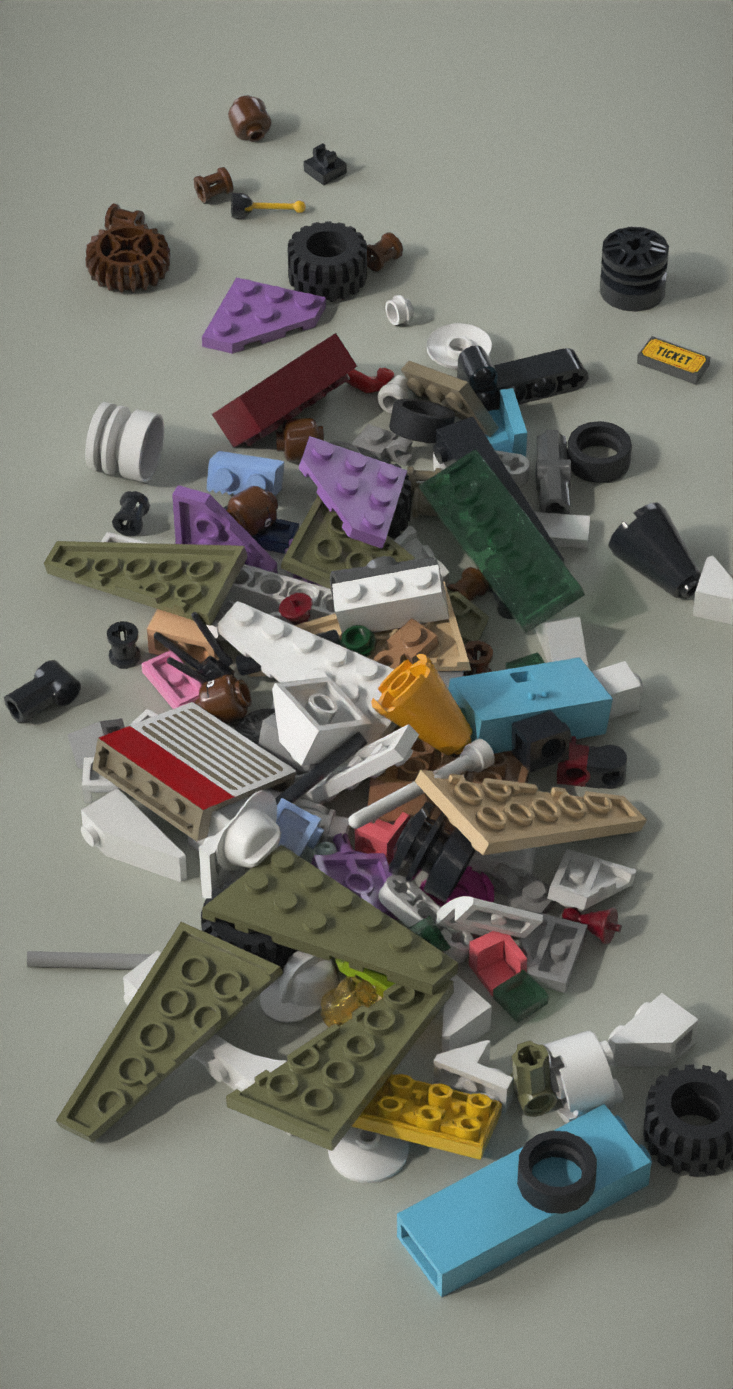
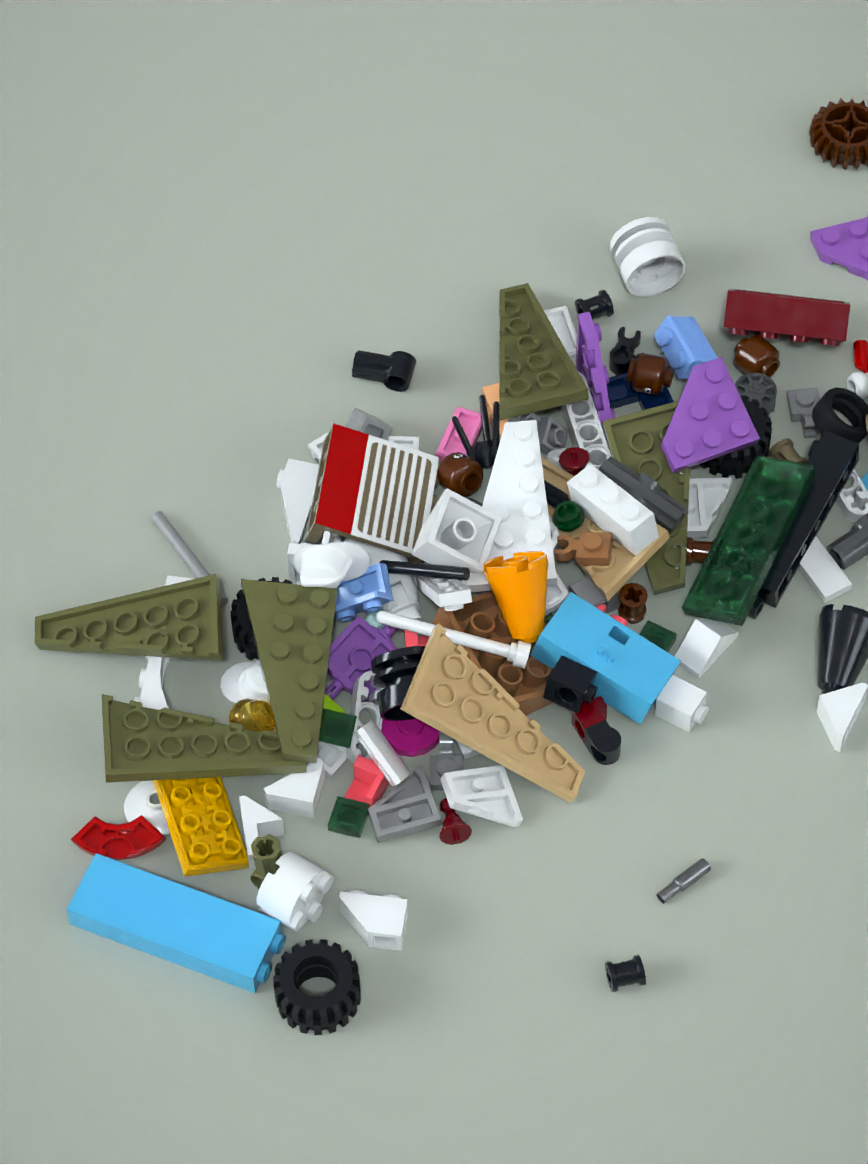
camera: 55 degrees right, 10 degrees up
(129, 644) = (465, 381): black bush -> none
(381, 1200) = (118, 841): none -> red tile
(559, 1145) = (188, 901): black tyre -> none

